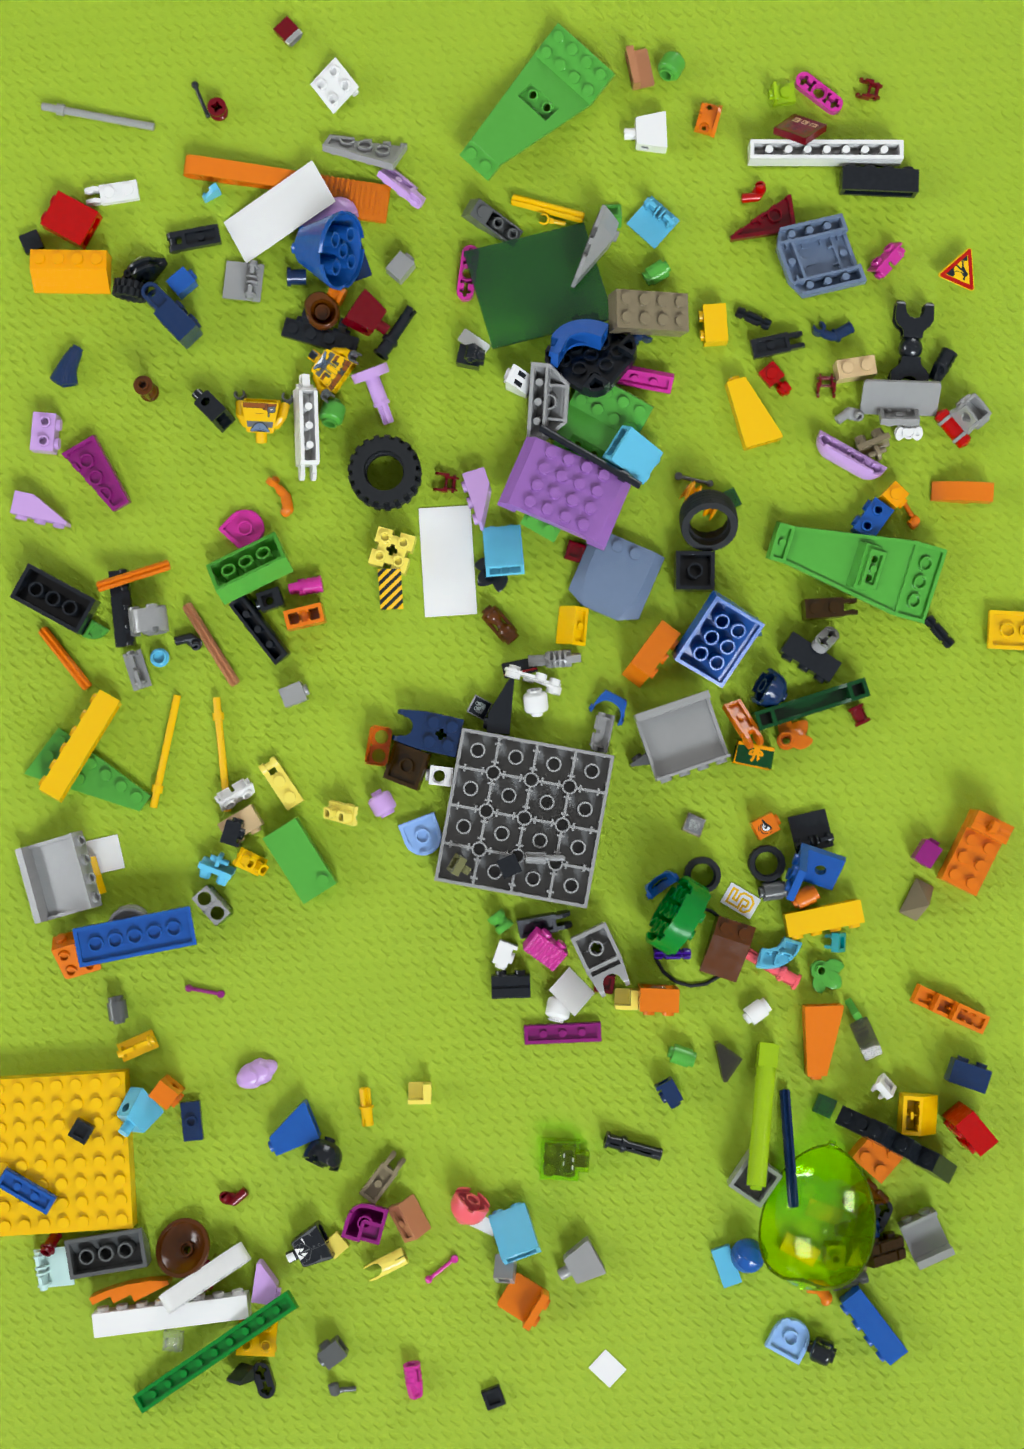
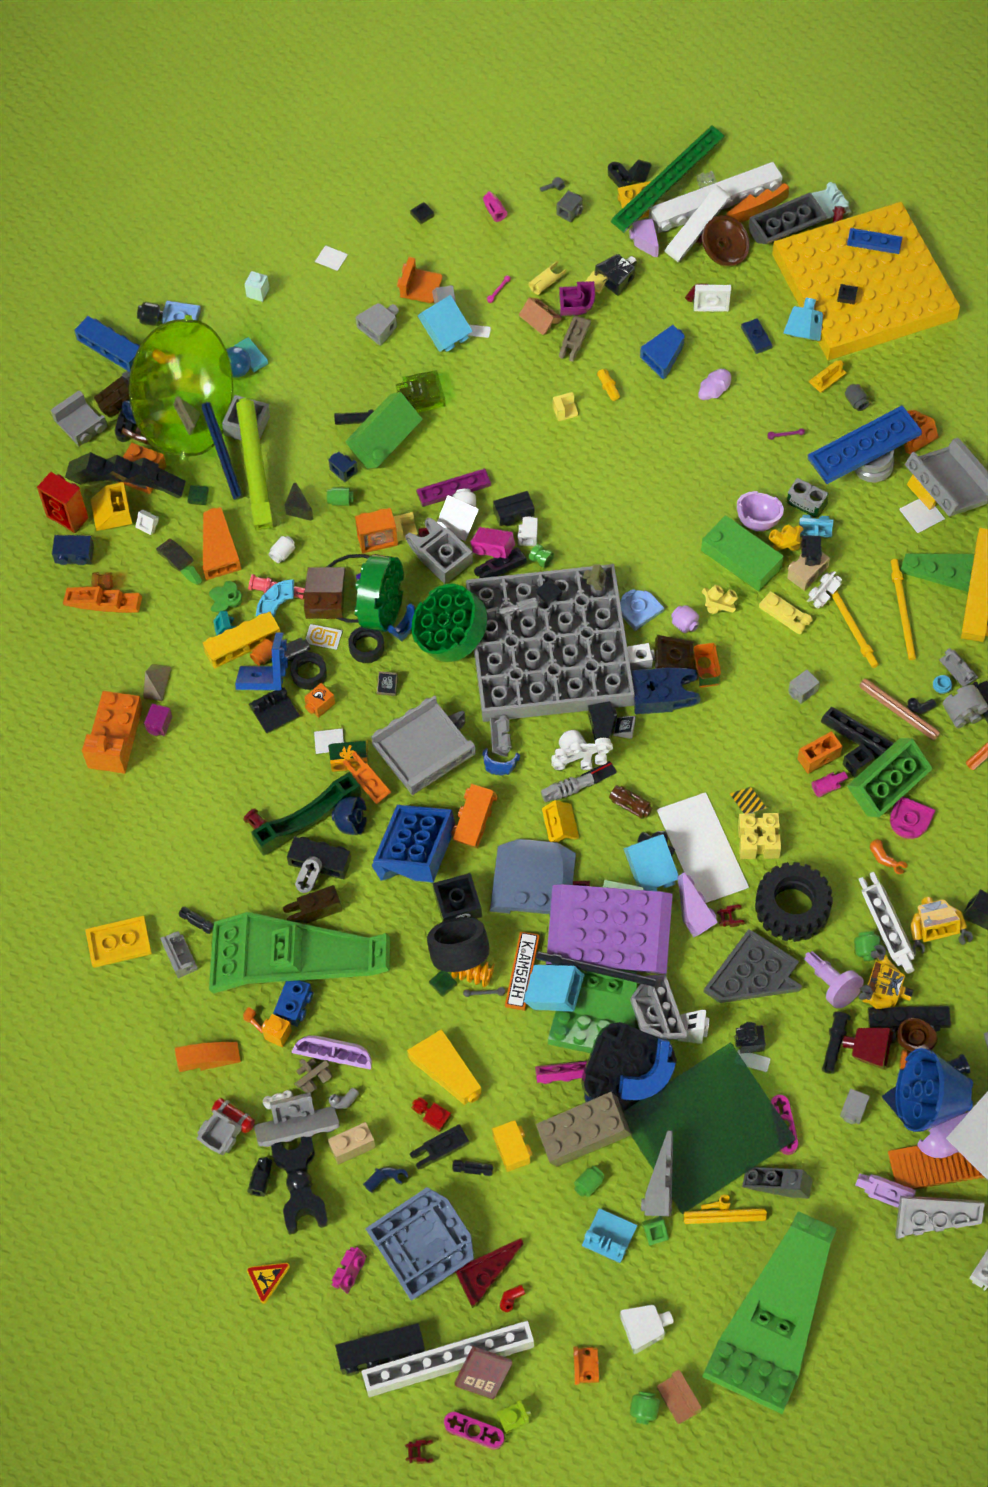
camera: 165 degrees right, 25 degrees down
(167, 1092) = (786, 344): orange brick -> none
(223, 1176) = (712, 298): none -> white tile
(266, 900) = (759, 510): none -> lavender cylinder
(324, 1153) = (631, 338): black cylinder -> none
(444, 421) = (753, 971): none -> dark grey wing
(468, 1207) = (491, 334): coral cylinder -> none
(616, 1117) = (383, 430): none -> bright green brick
(618, 861) = (449, 623): none -> green brick
(653, 489) = (521, 970): none -> tile
(698, 1350) = (257, 286): none -> light aqua brick
(765, 782) = (327, 737): none -> white sticker
(796, 733) = (311, 787): orange plate -> none
(811, 1203) = (187, 414): none -> dark tan slope
(832, 385) = (383, 1120): dark red piece -> none
(945, 1029) = (105, 580): none -> clear orange wheel
(964, 600) = (179, 954): none -> light grey hinge

